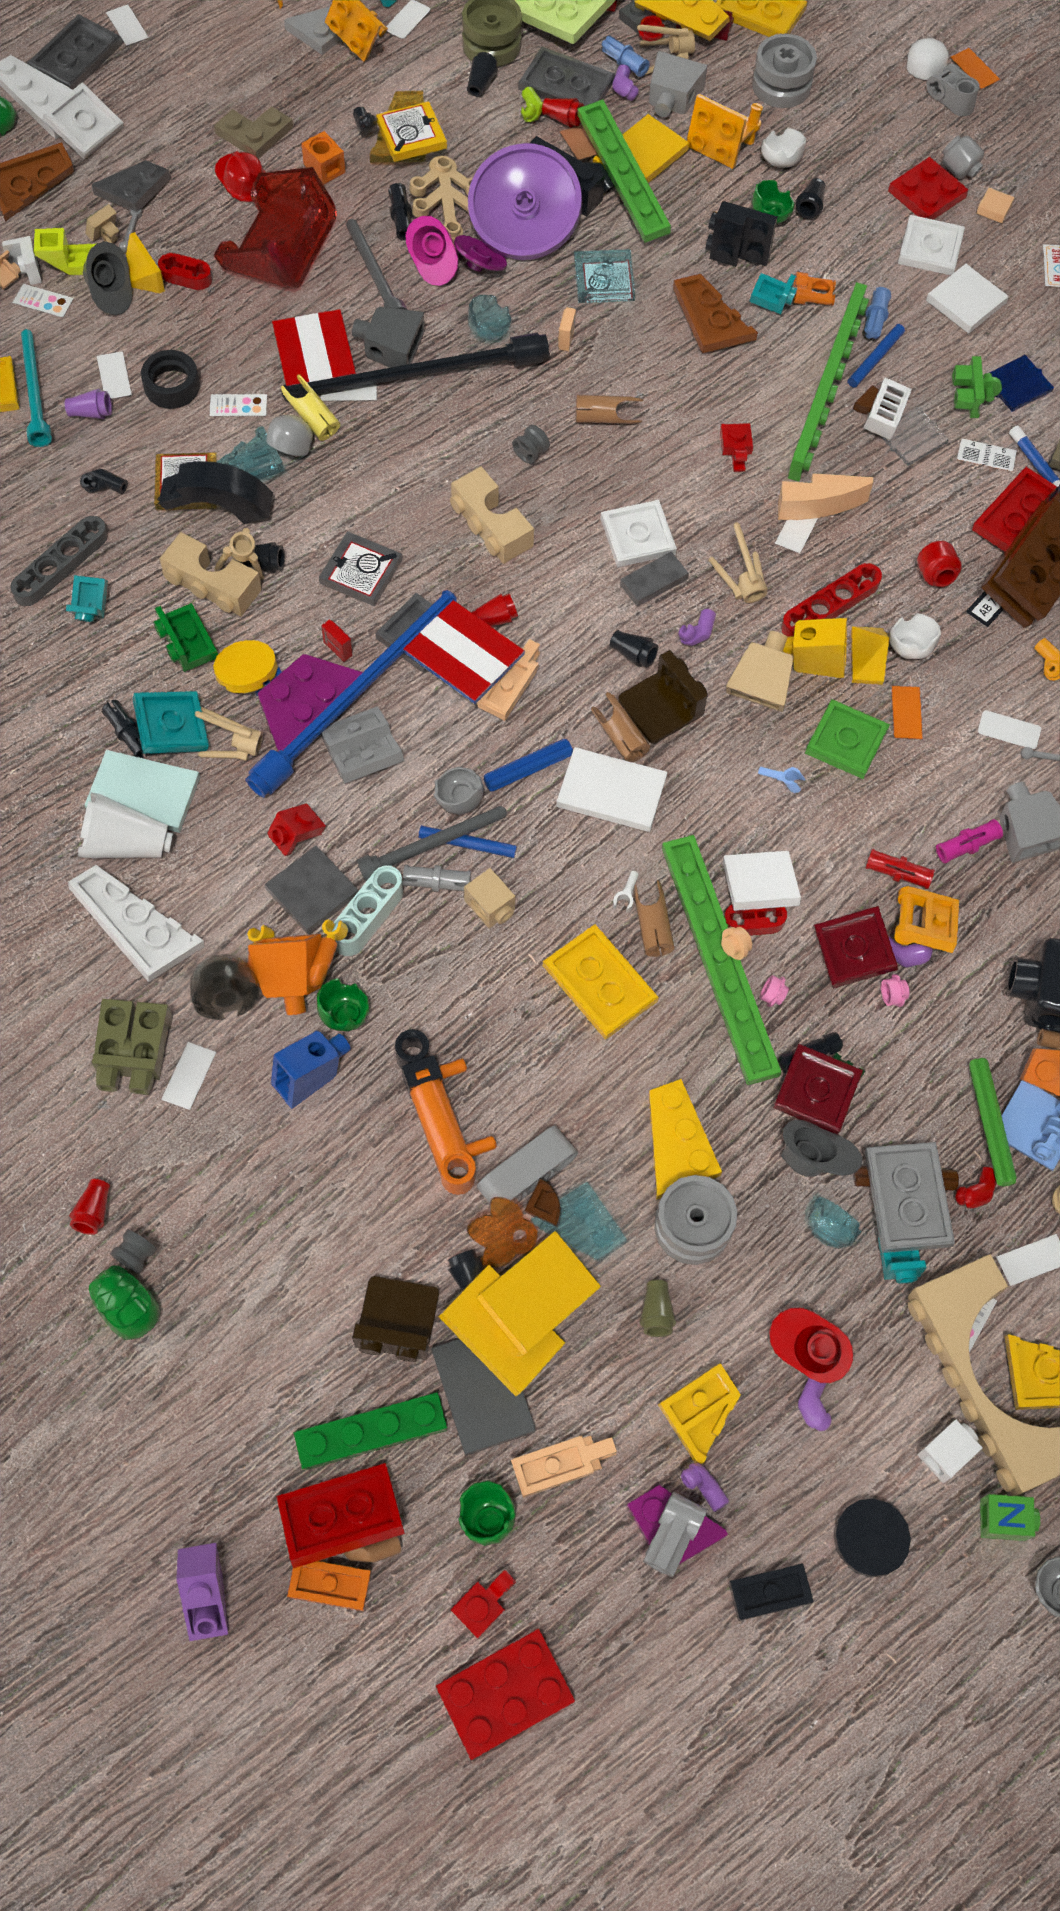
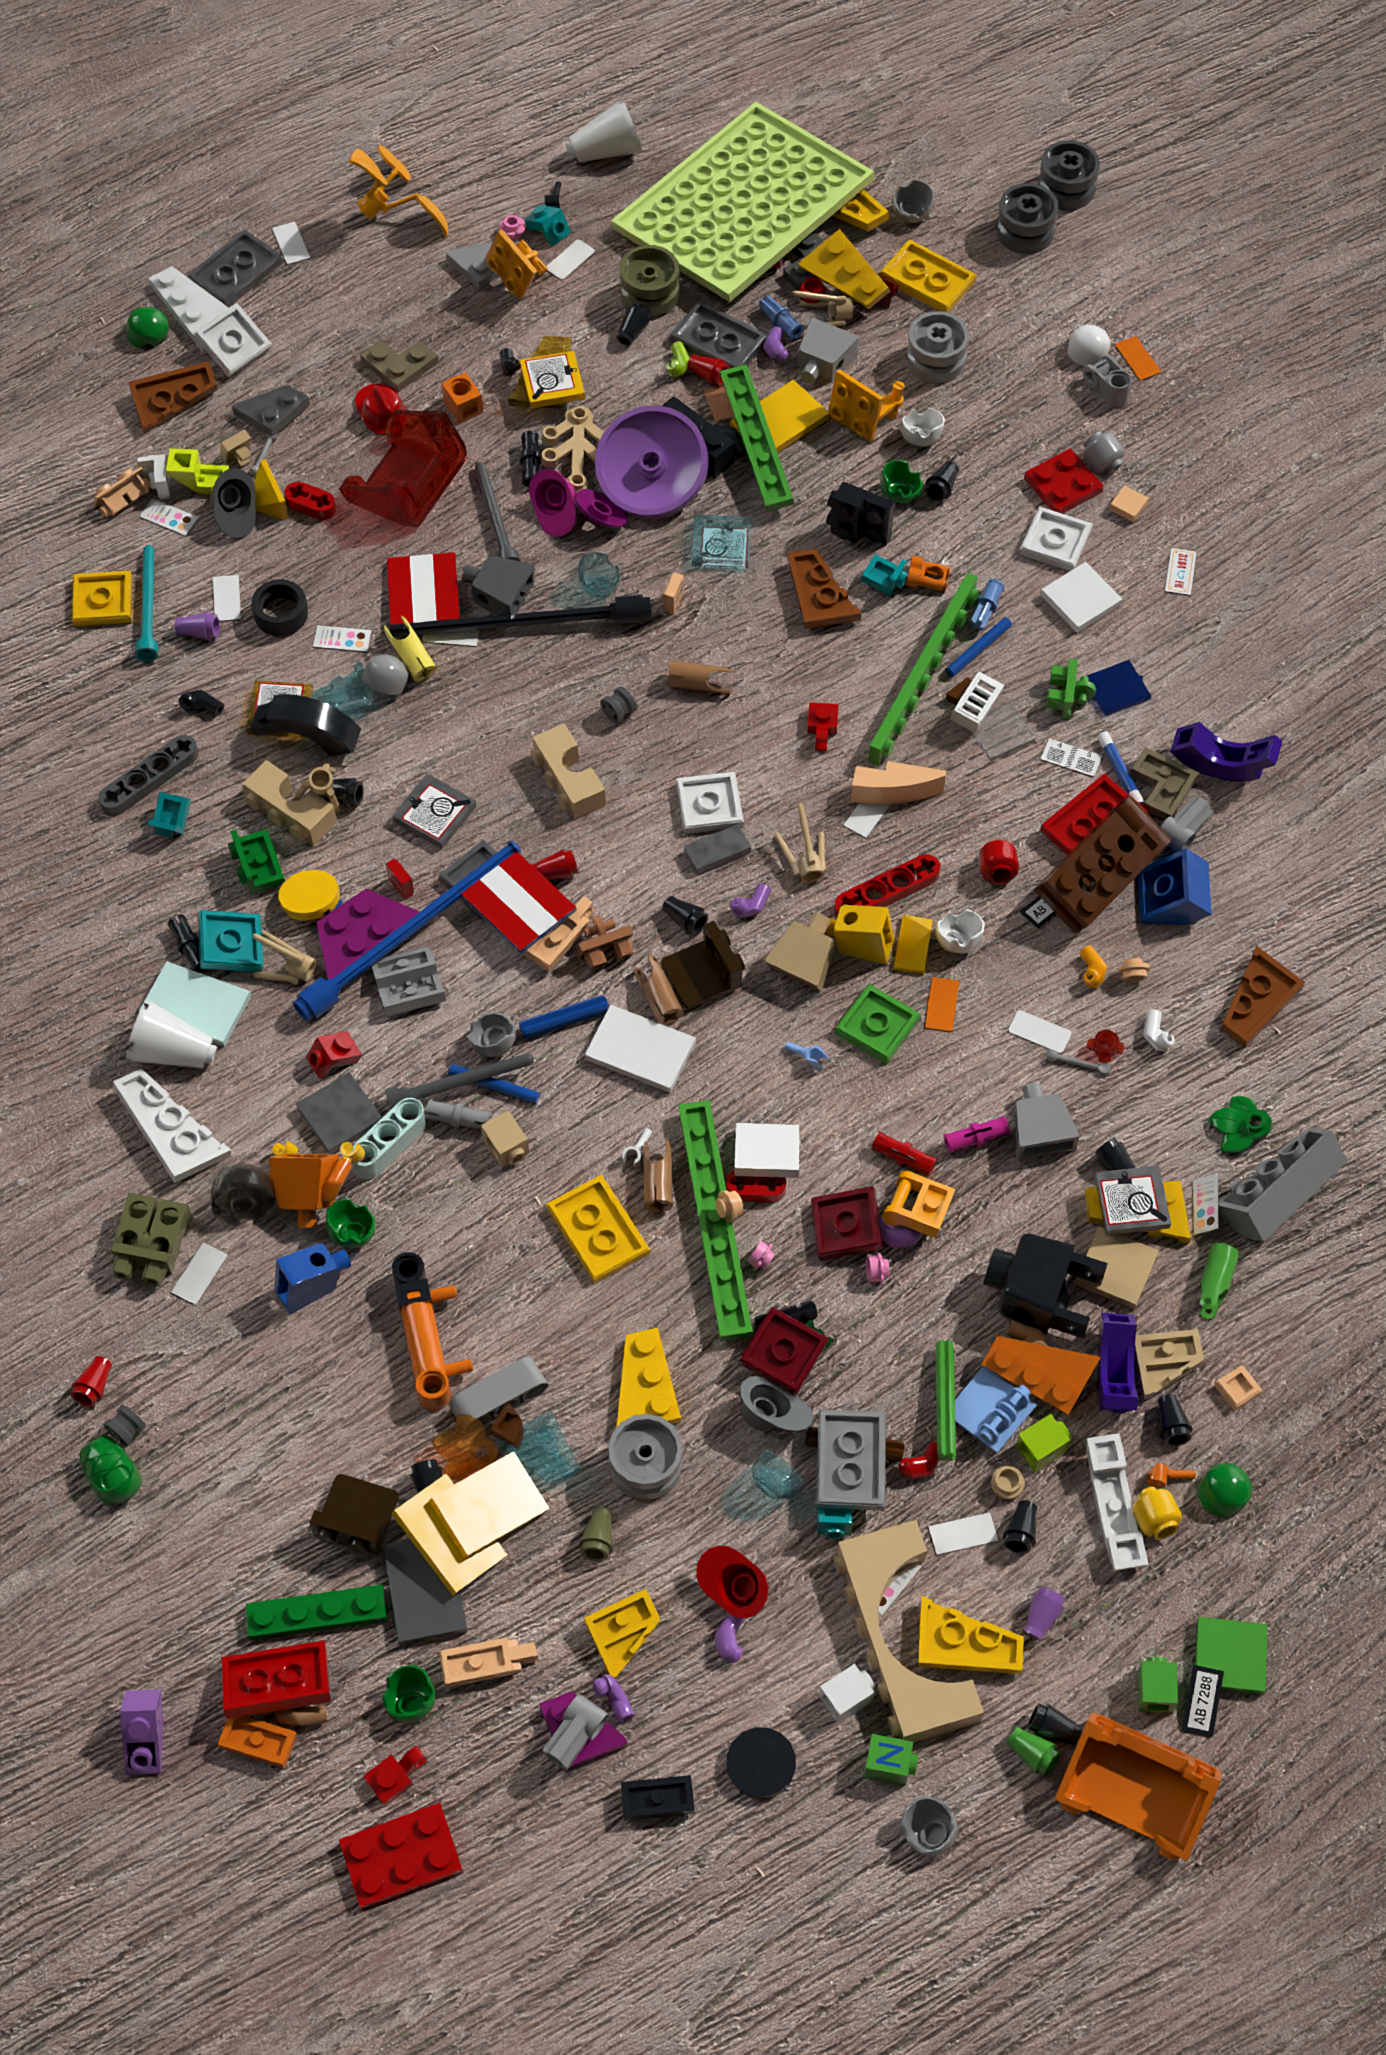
camera: 10 degrees right, 5 degrees down
(547, 693) = (618, 939): none -> nougat hips

